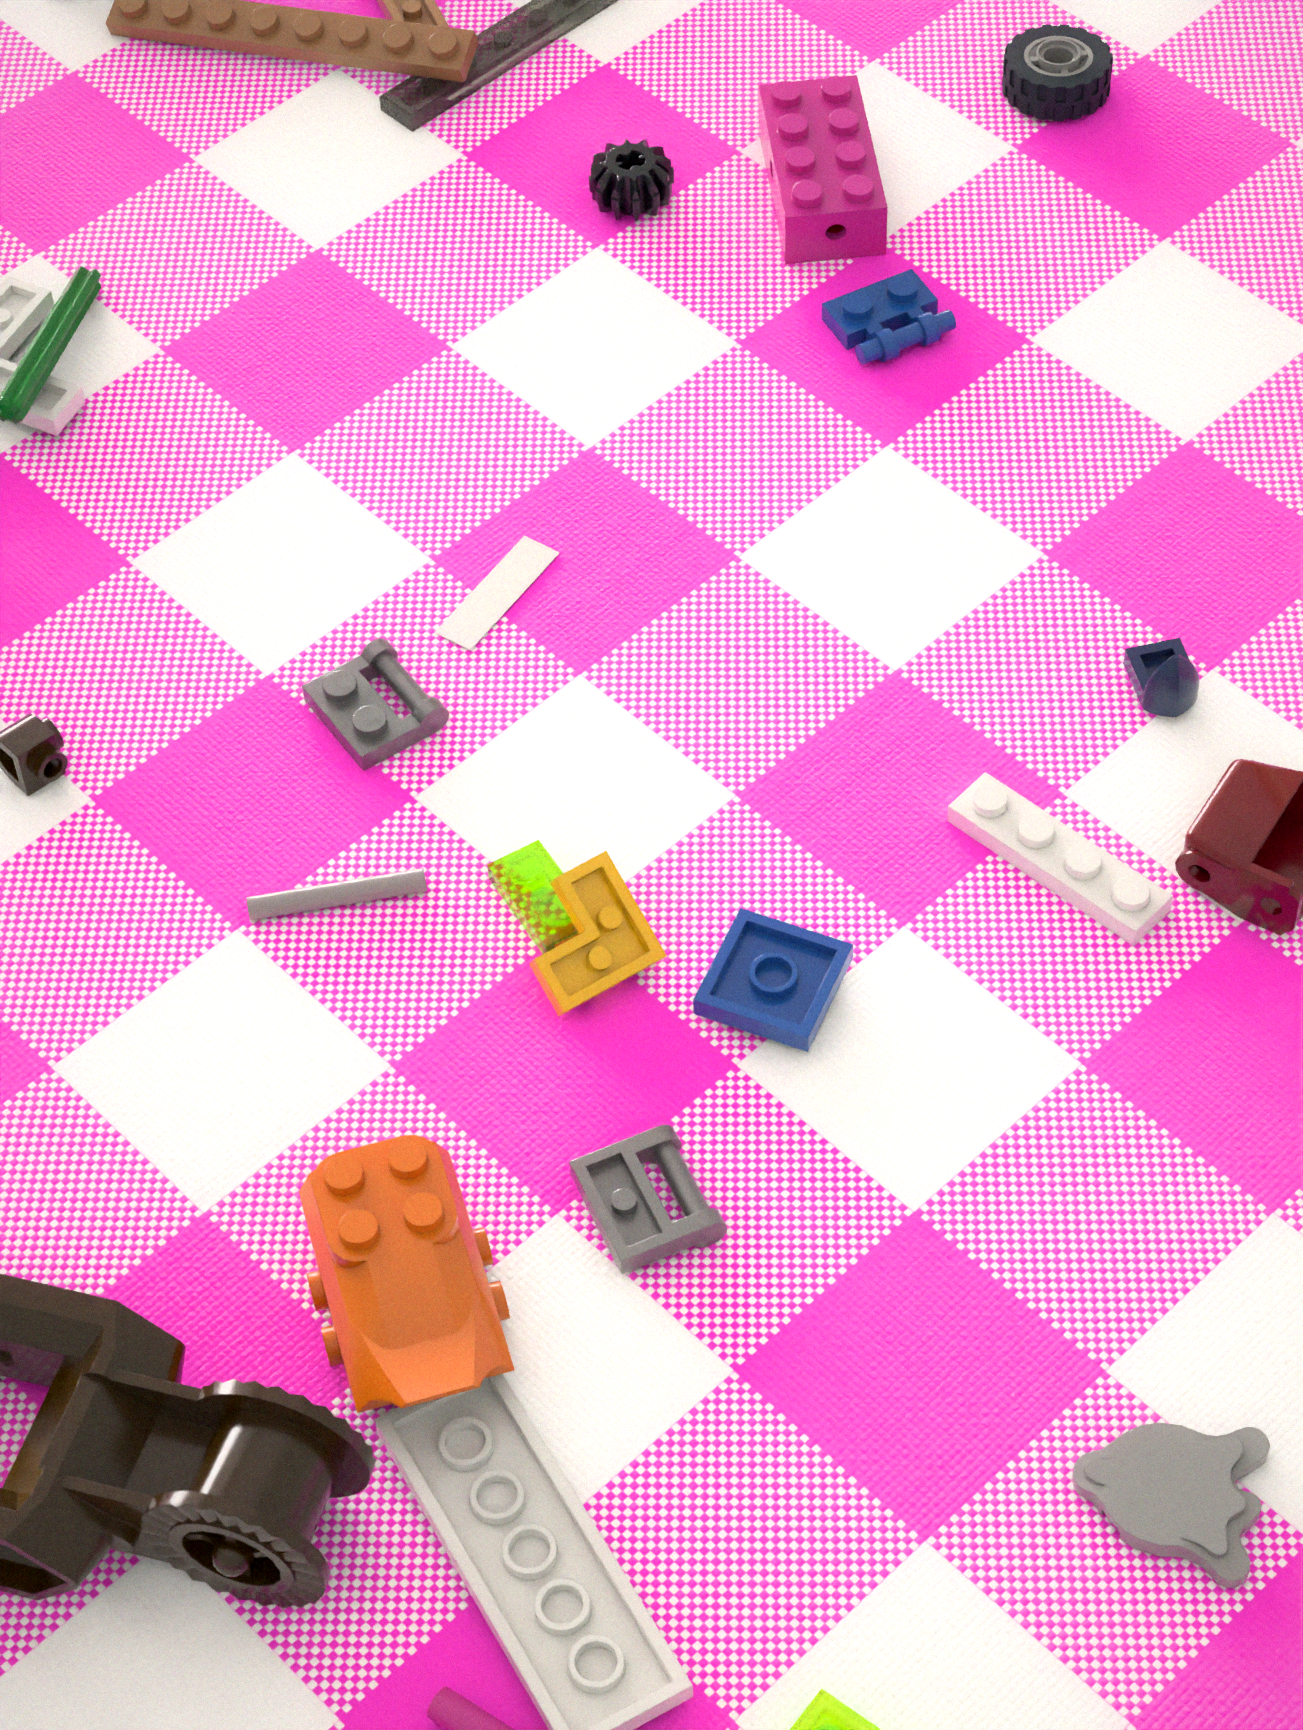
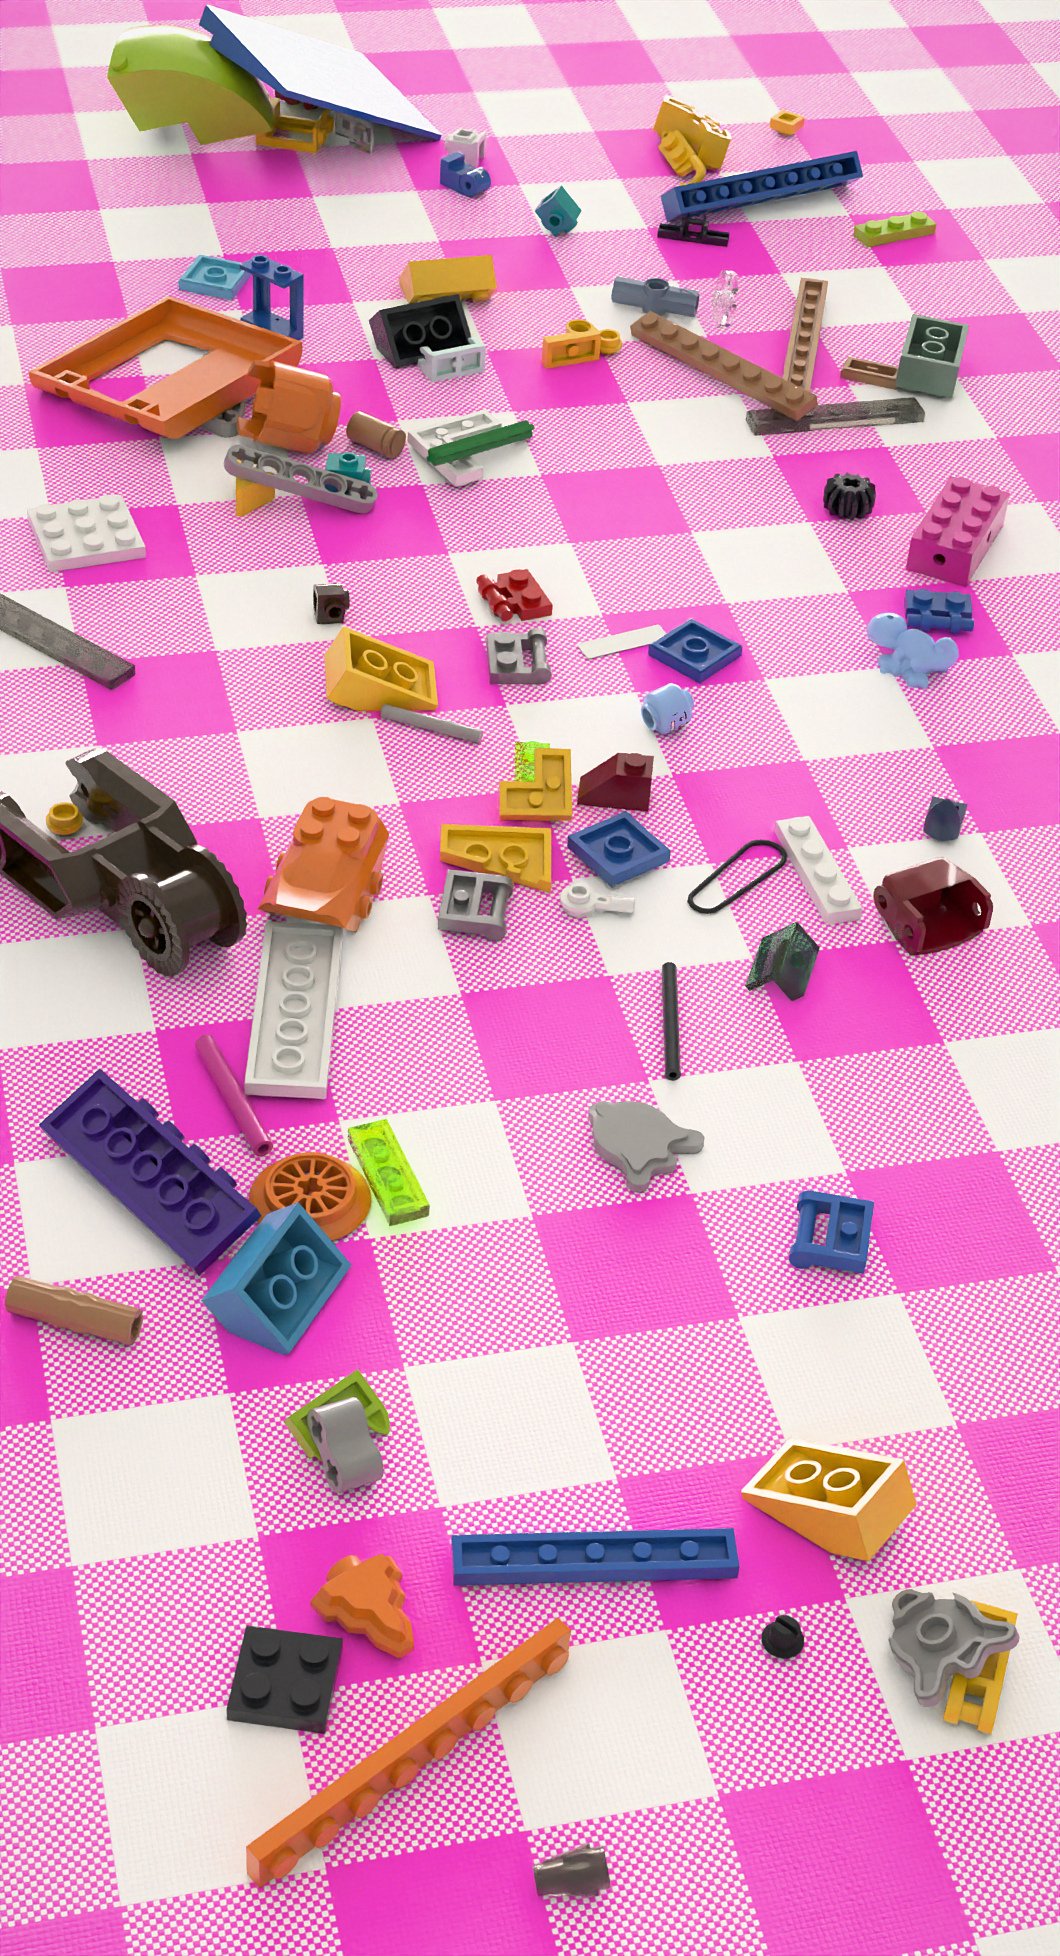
camera: 25 degrees right, 10 degrees down
(57, 94) = (577, 345): none -> plate
(92, 65) = (610, 341): none -> yellow plate
(202, 853) = (373, 673): none -> yellow slope
(297, 583) = (515, 594): none -> red plate
(612, 558) = (695, 650): none -> blue tile
(614, 1080) = (500, 850): none -> yellow wing
(661, 689) = (667, 708): none -> light blue head
(691, 860) = (618, 783): none -> dark red slope
(786, 1102) = (582, 901): none -> white plate
(918, 410) = (914, 650): none -> light blue animal
(987, 937) = (752, 843): none -> black piece
(1064, 1248) = (671, 1021): none -> black piece
(1137, 1052) = (786, 959): none -> panel

